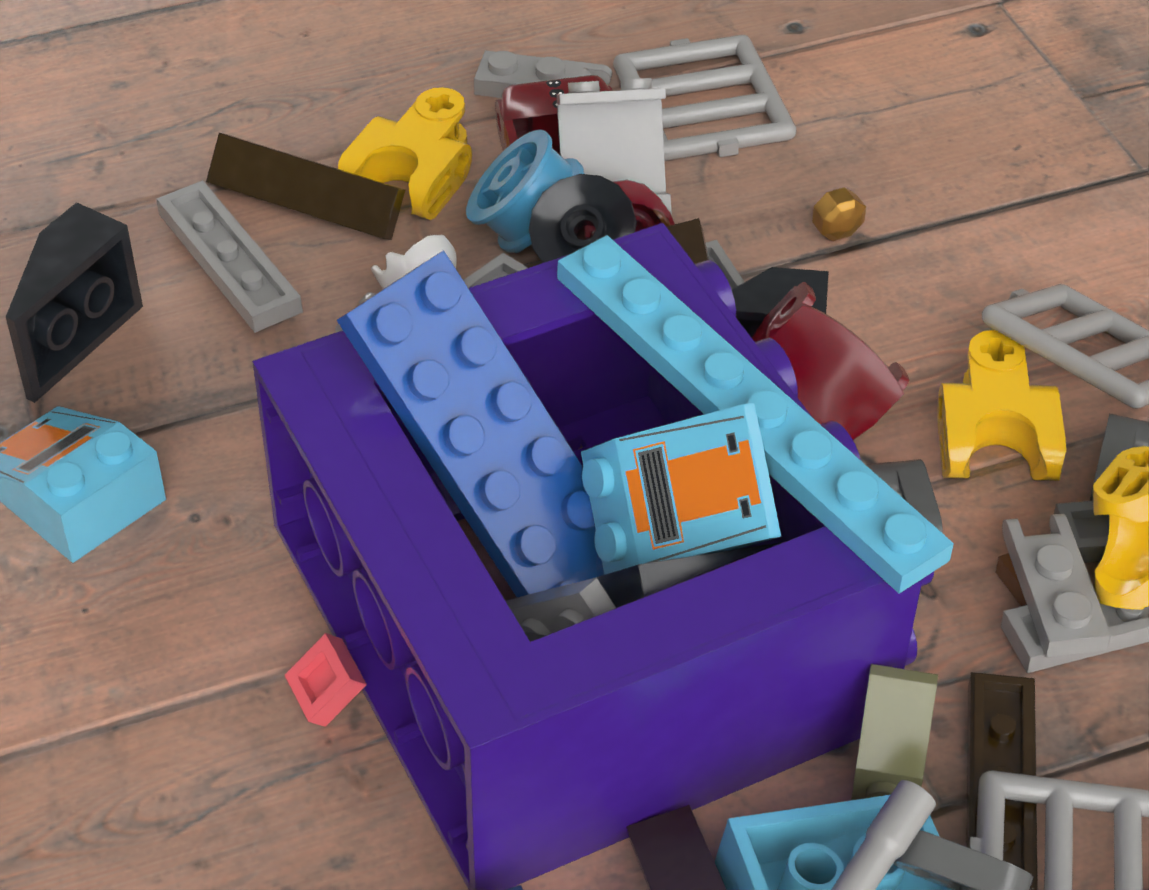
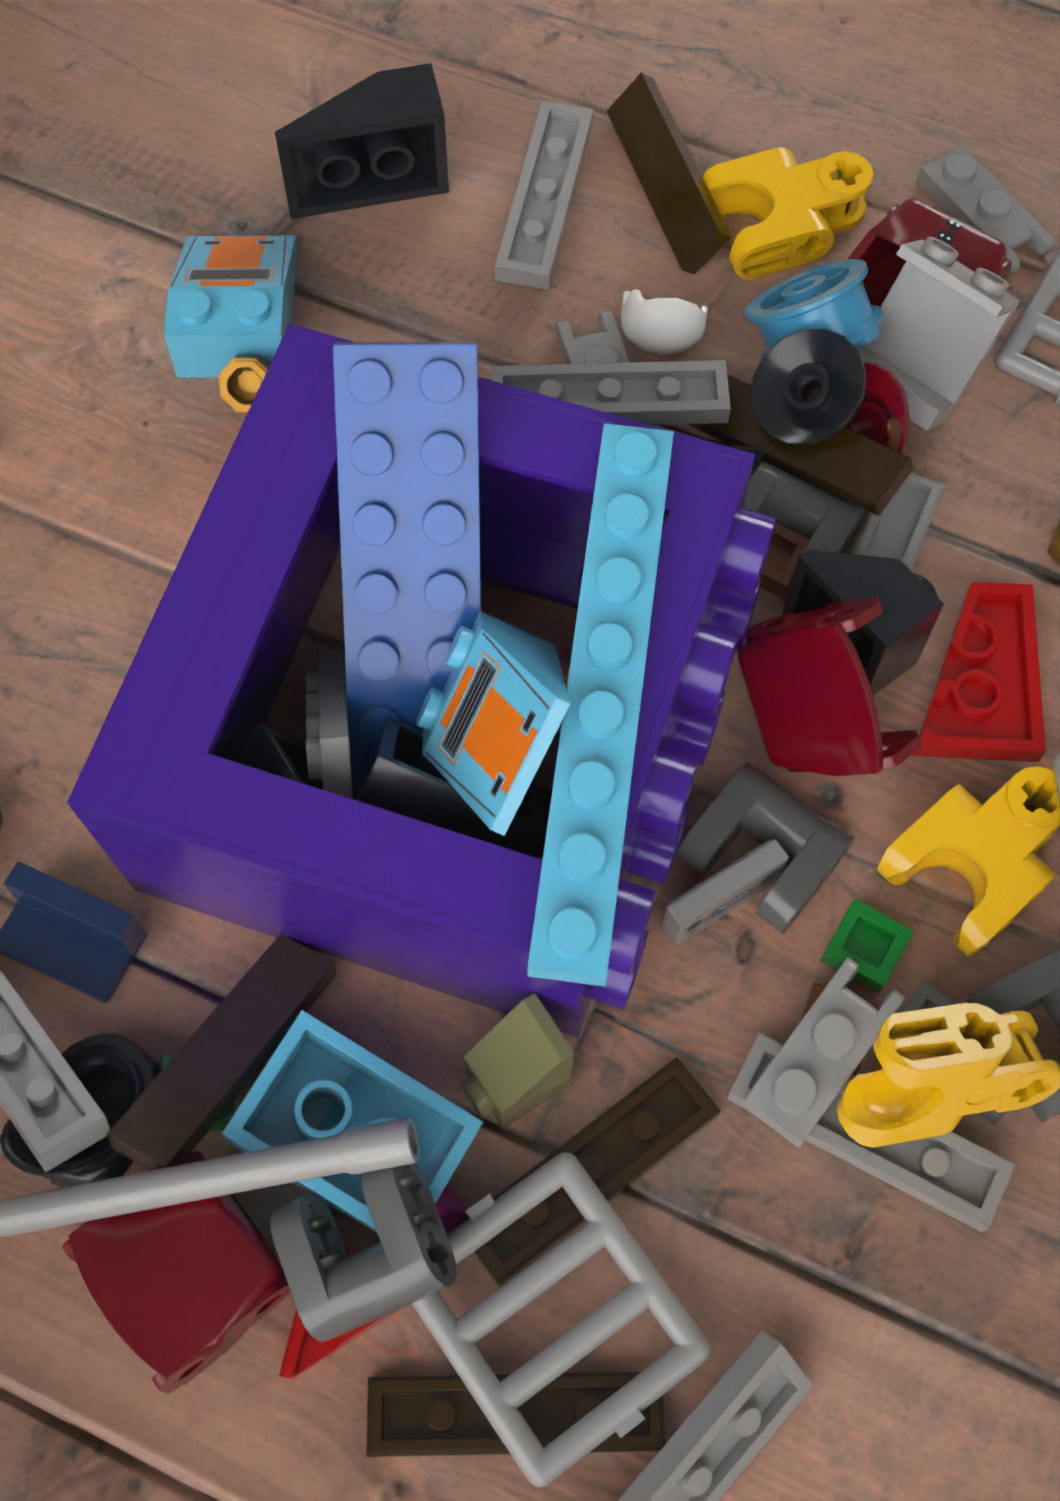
camera: 45 degrees right, 20 degrees up
(150, 515) = (242, 380): none -> pearl gold tile
(888, 318) = (989, 681): none -> red wing
(987, 508) = (870, 941): none -> green plate

